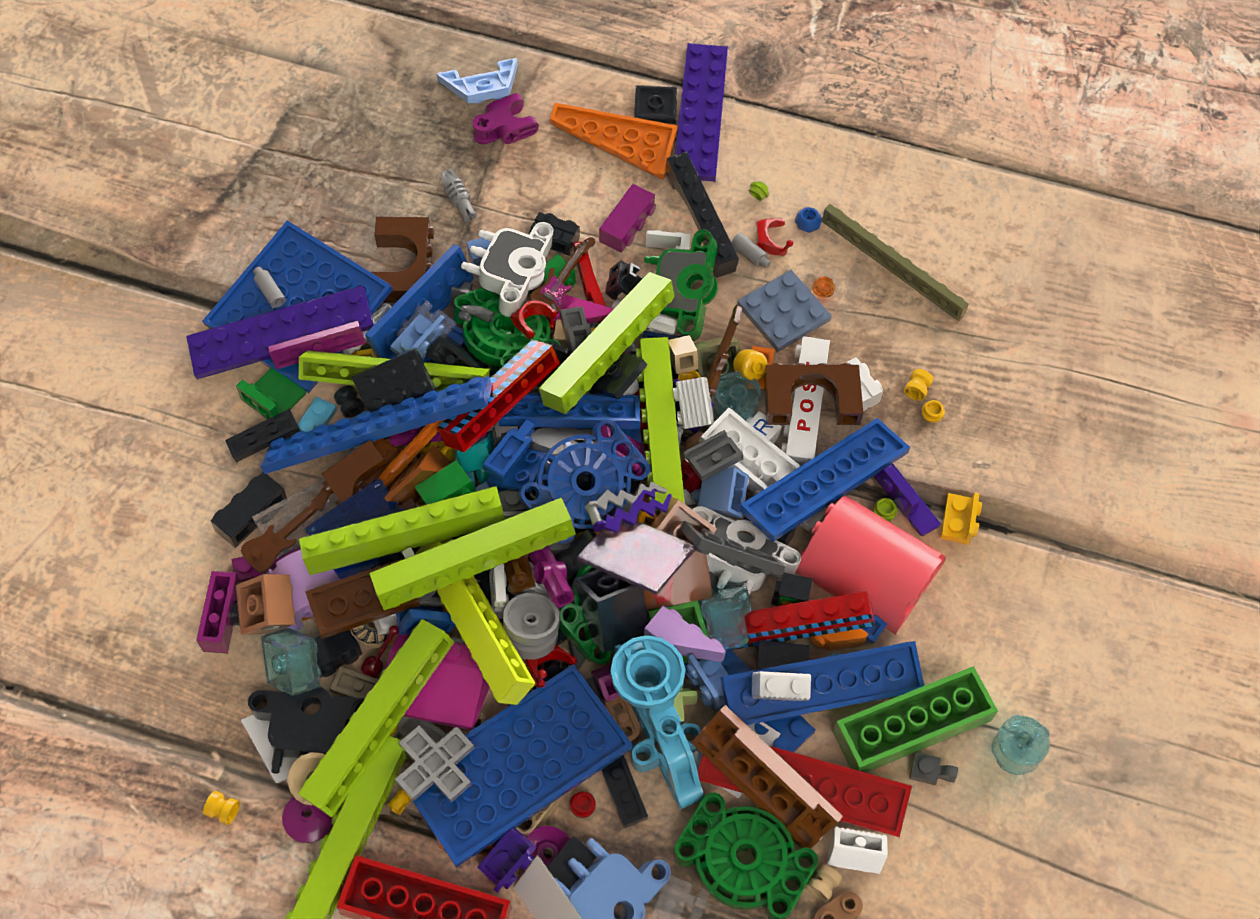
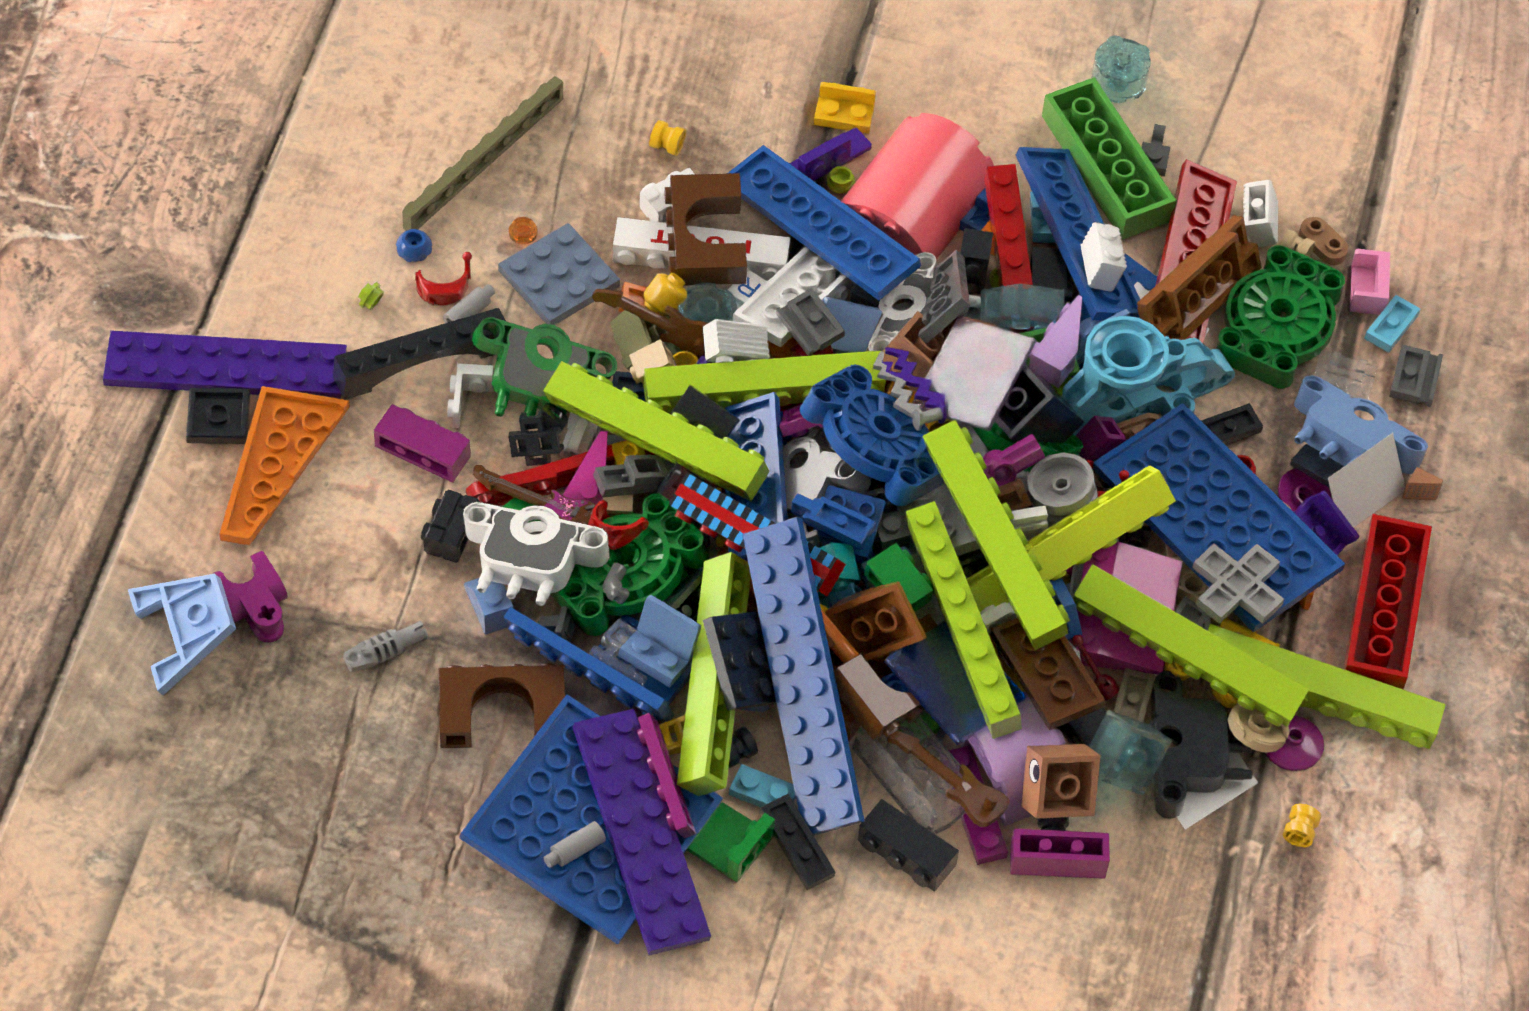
camera: 95 degrees left, 5 degrees down
(933, 411) = (701, 127): yellow plate -> none

